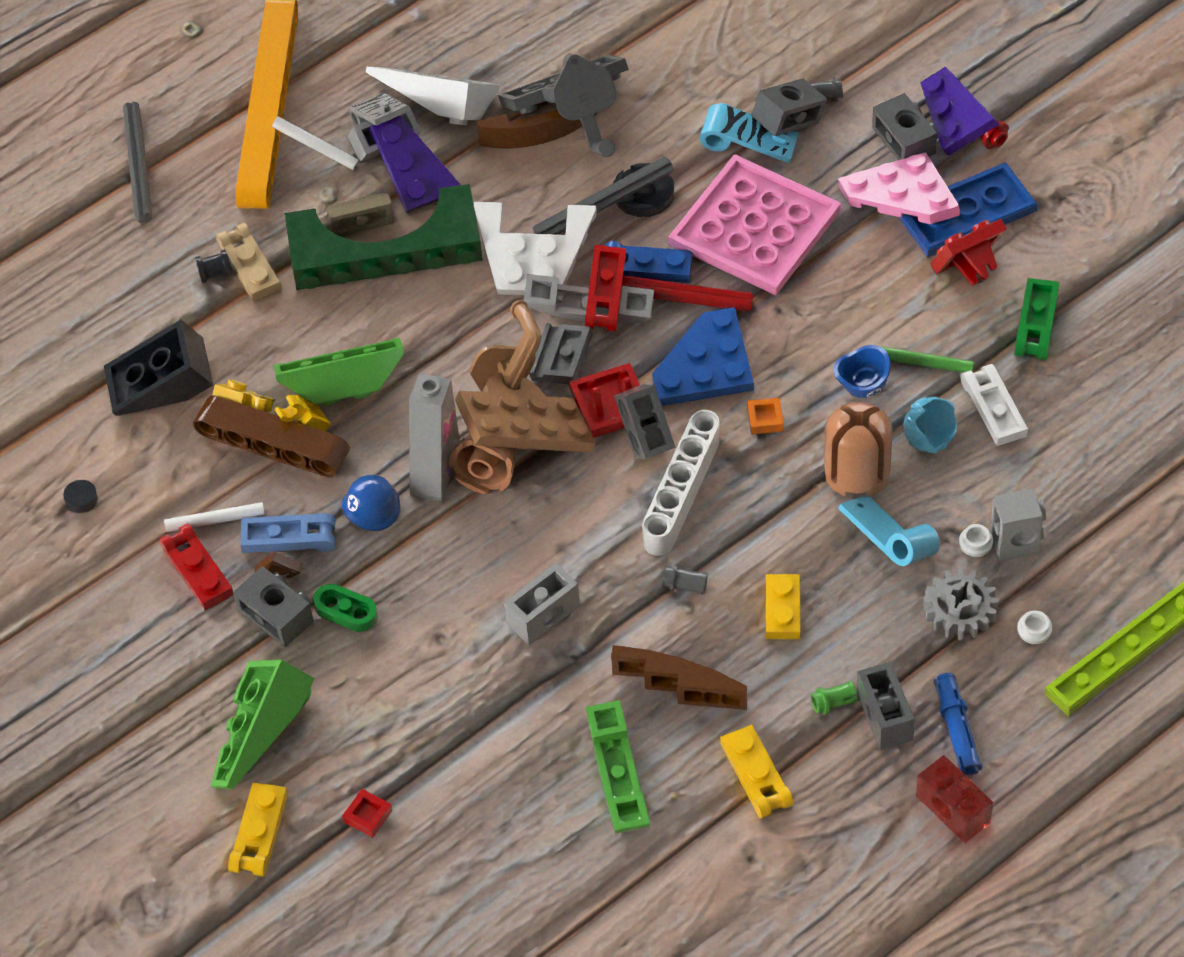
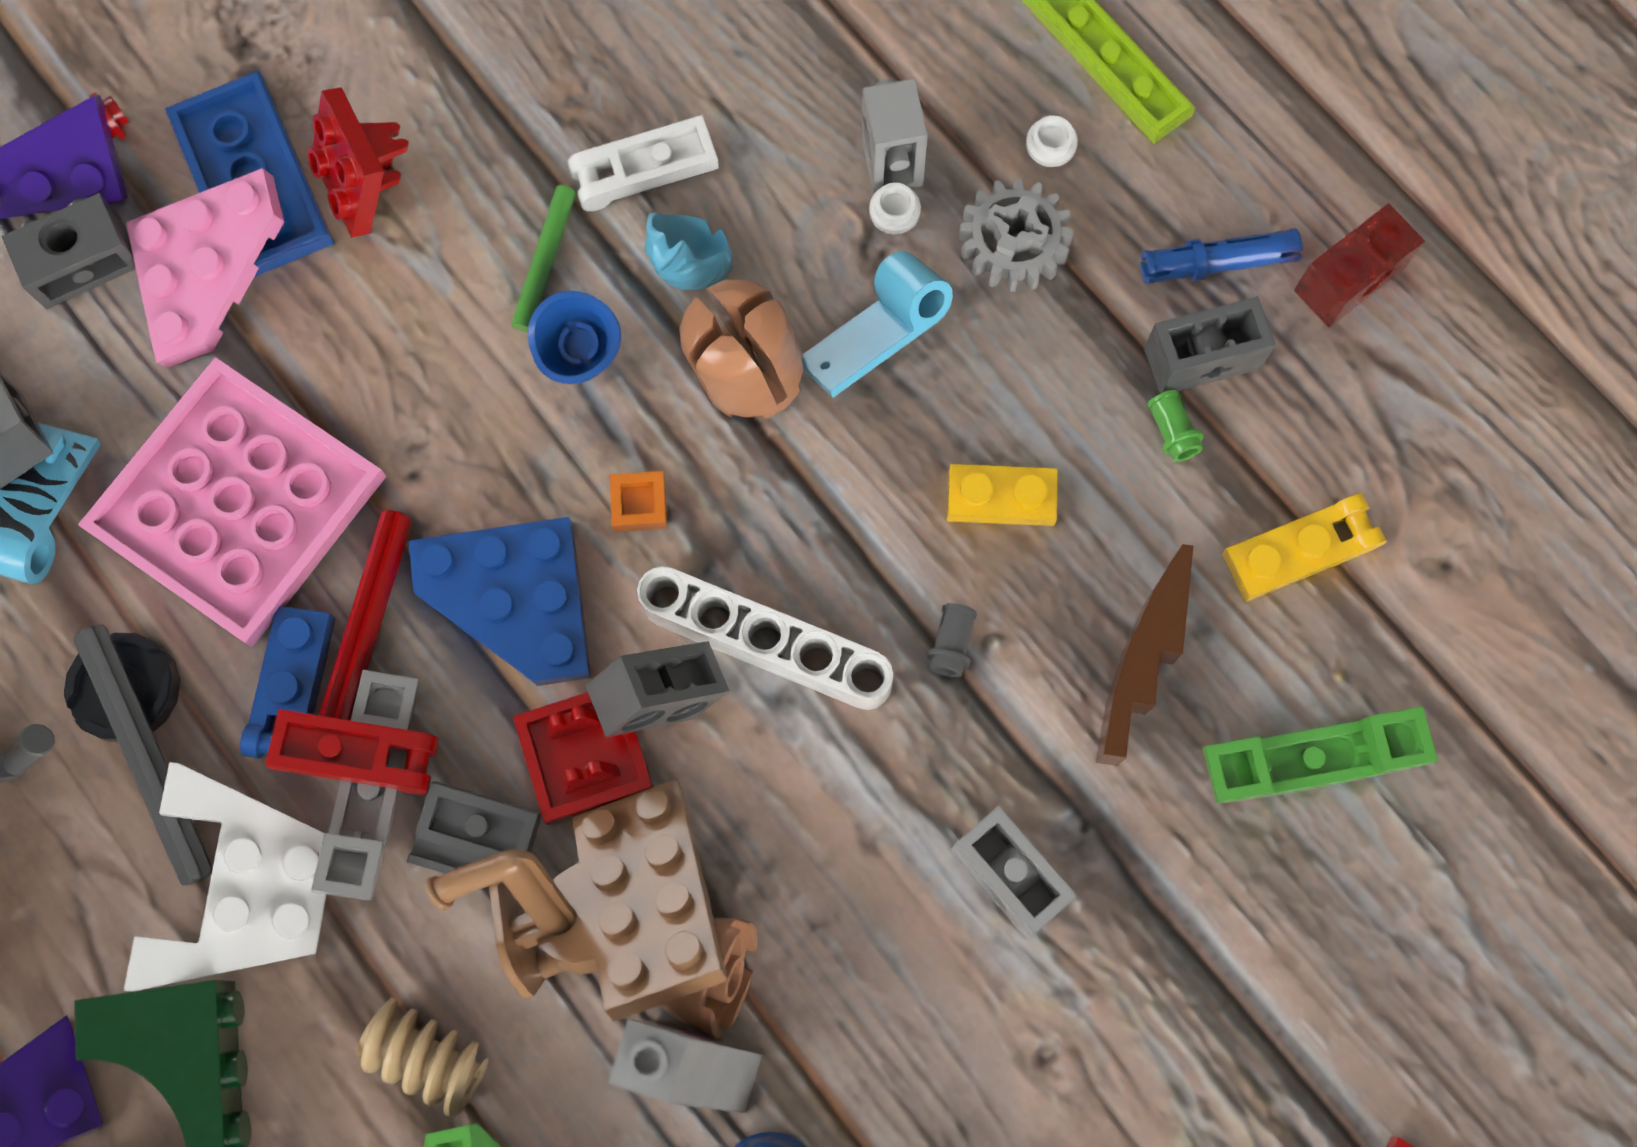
camera: 90 degrees left, 20 degrees up
(439, 339) = (420, 1059): none -> tan piece
(1037, 317) = (485, 89): green plate -> none

